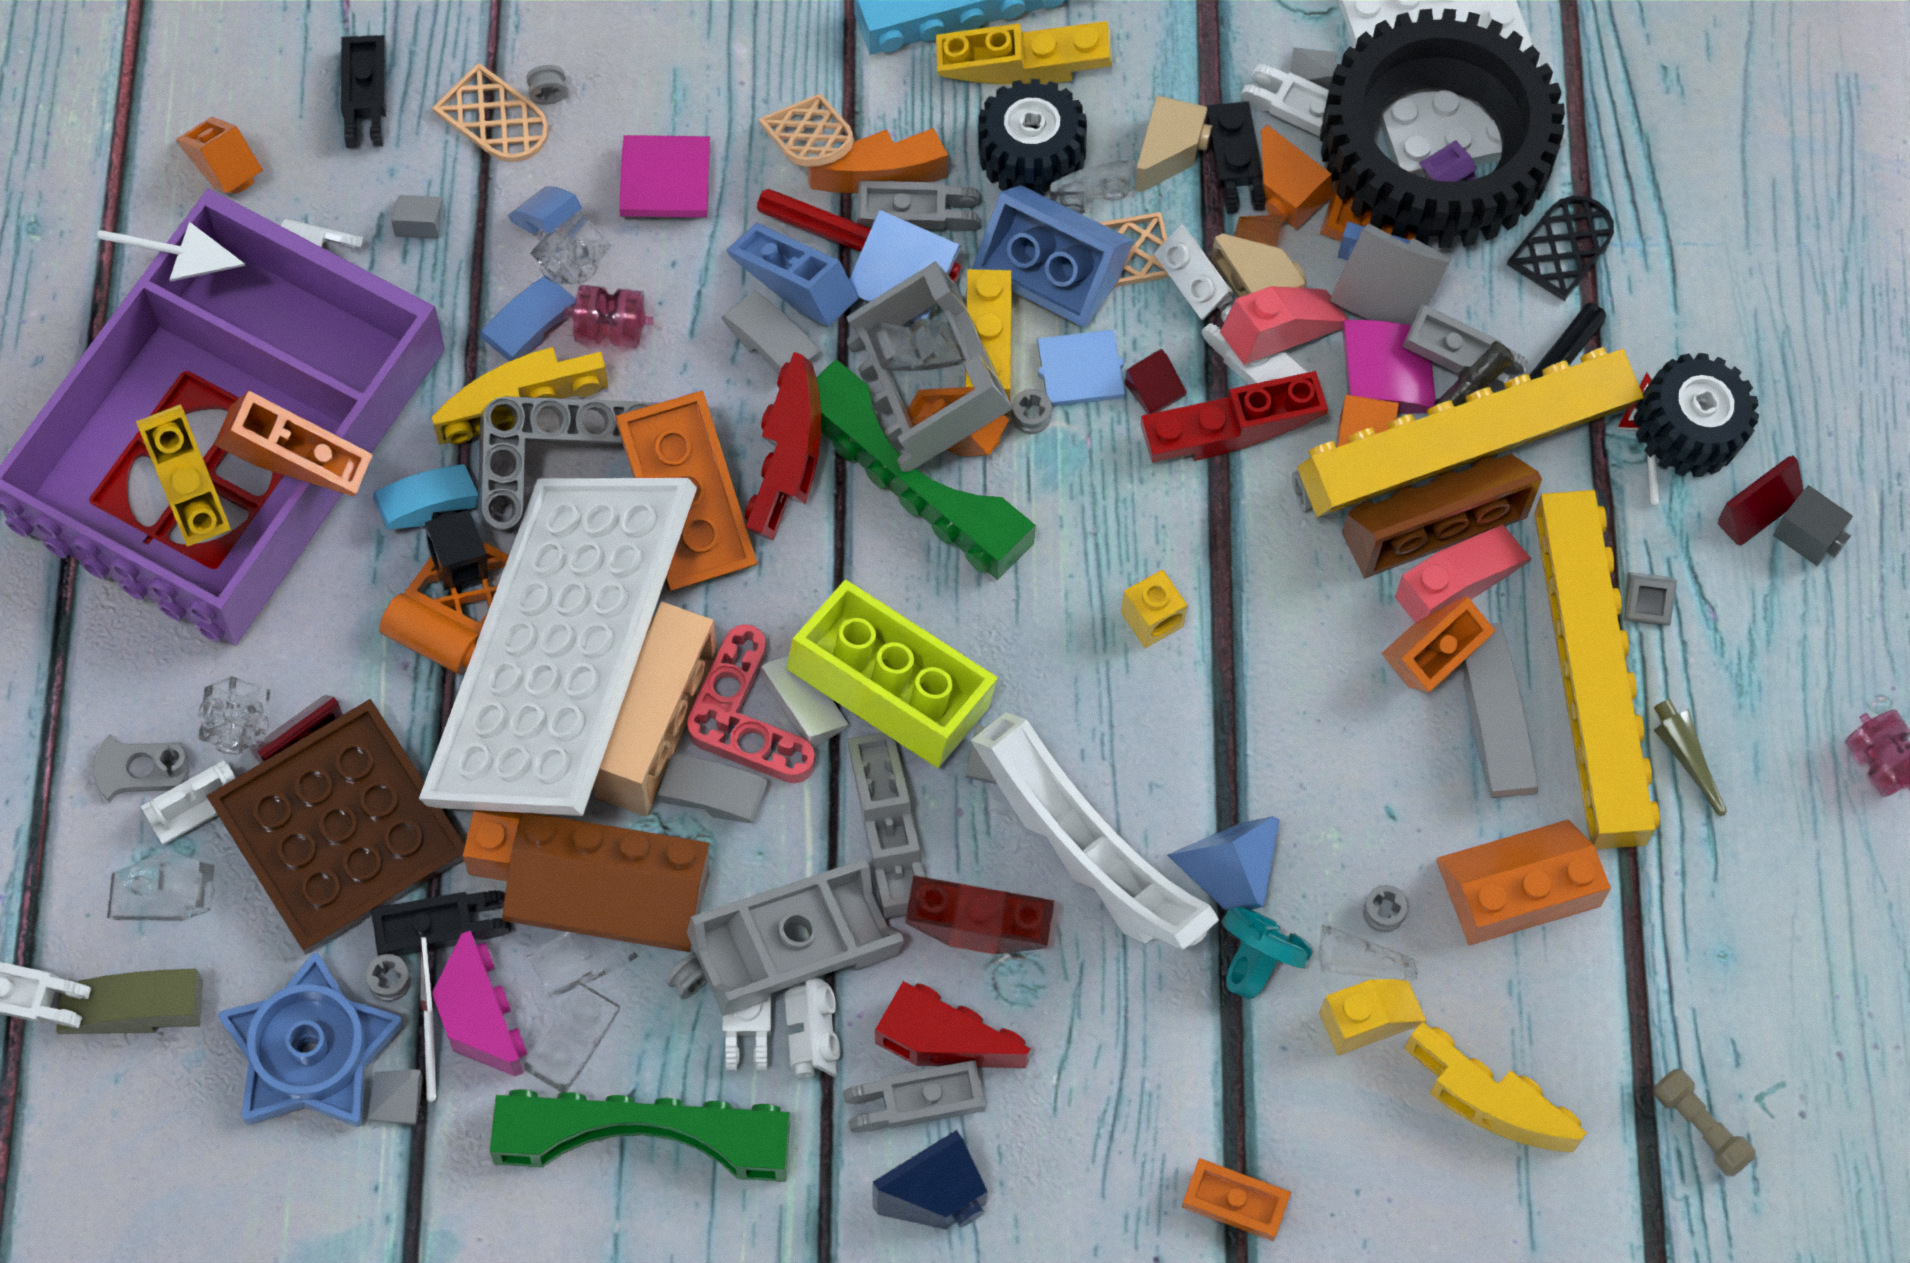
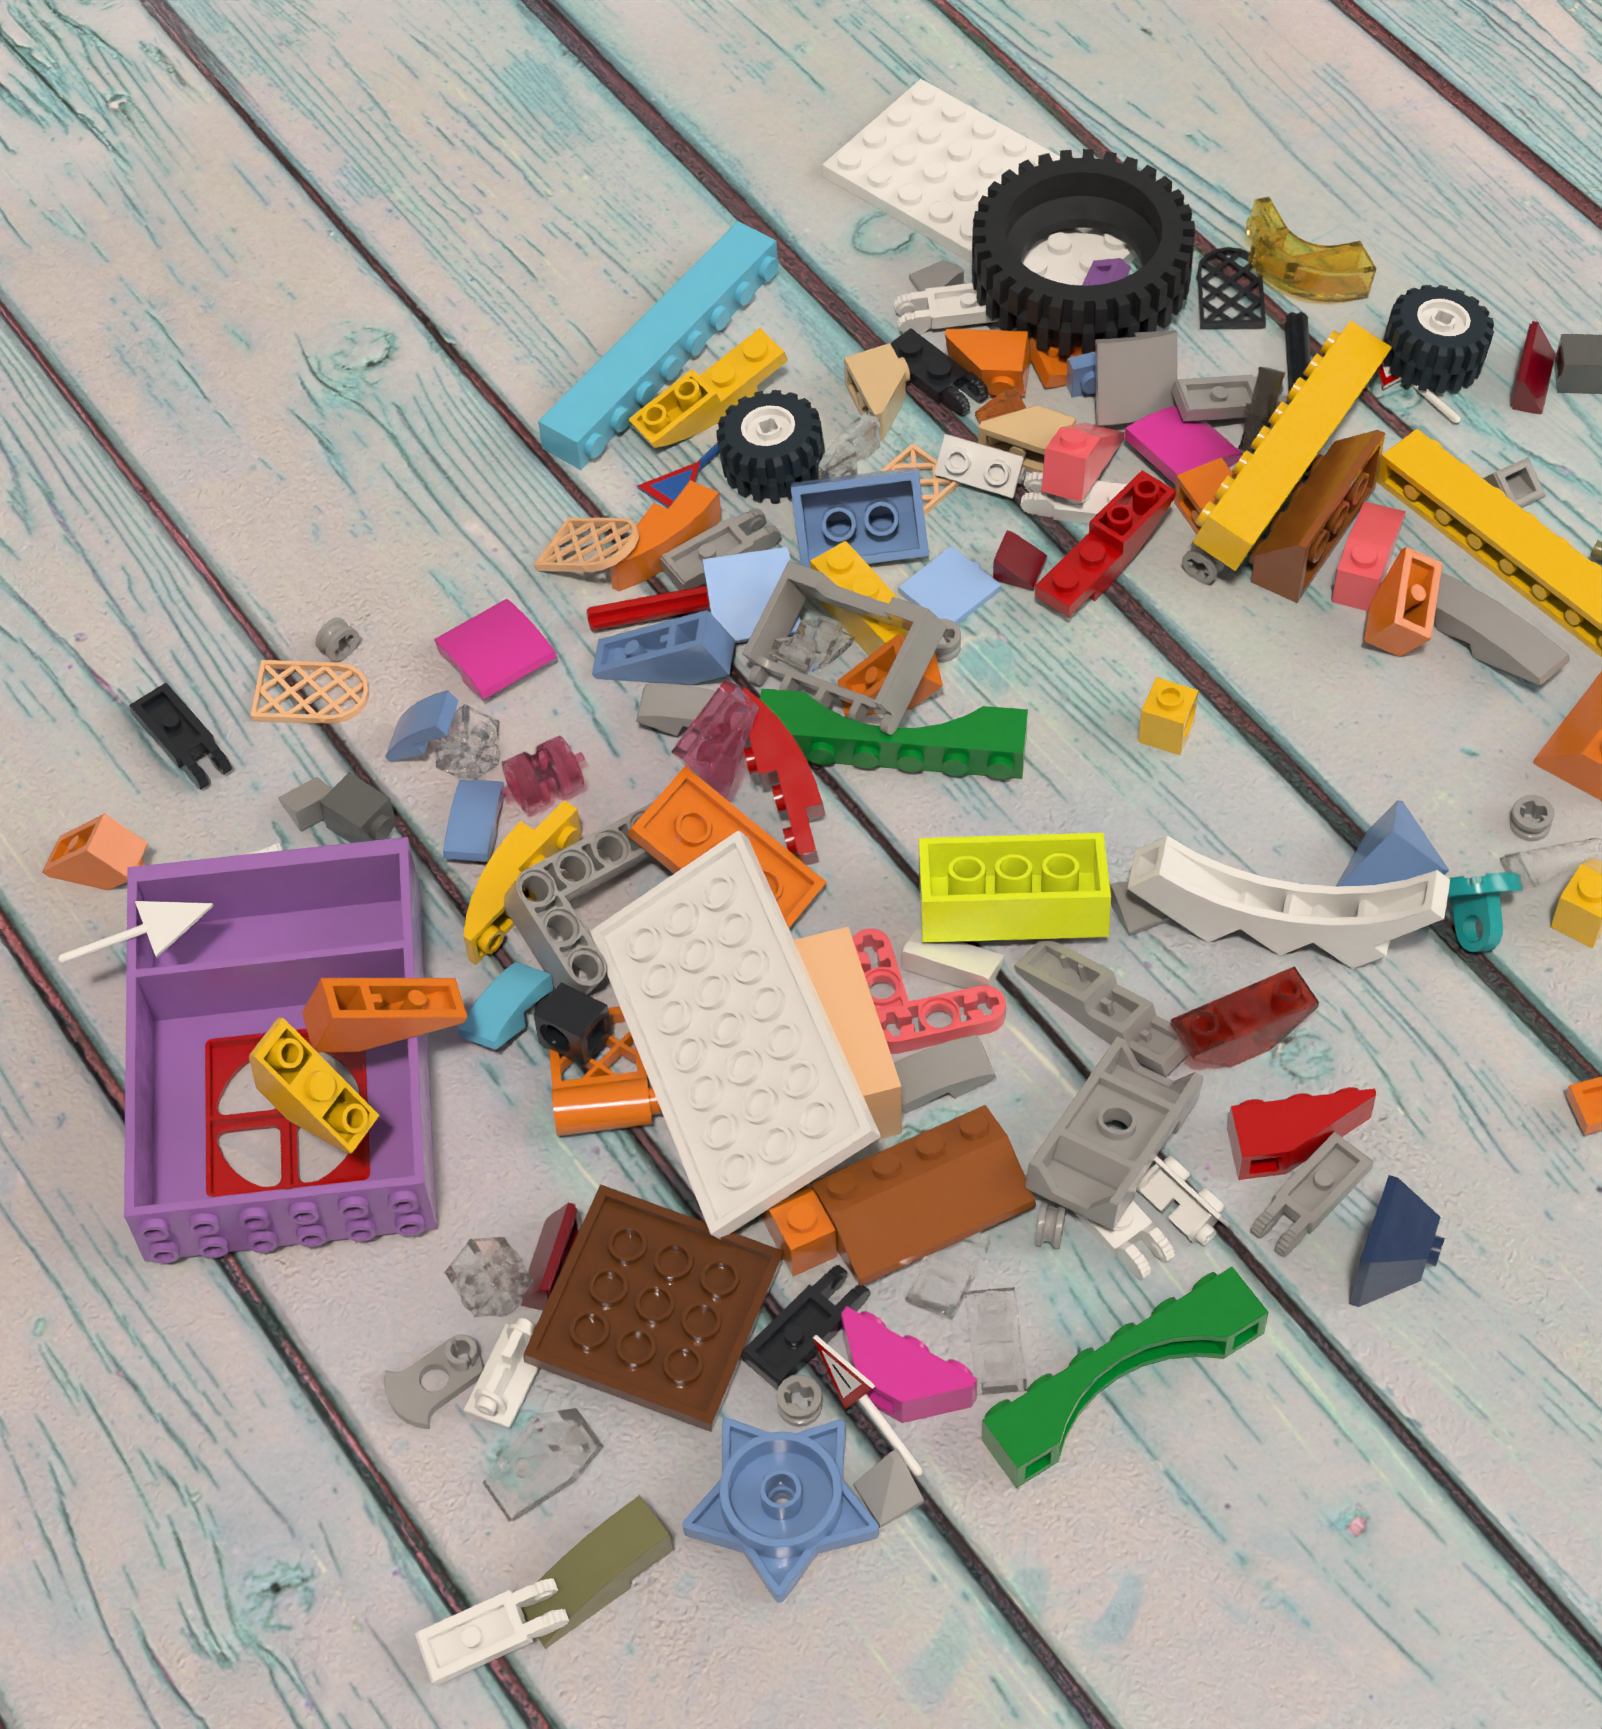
camera: 30 degrees left, 10 degrees down
(443, 252) = (357, 811): none -> dark grey brick
(744, 384) = (718, 737): none -> clear pink wing
(942, 119) = (669, 486): none -> piece
(1640, 270) = (1306, 268): none -> clear yellow arch

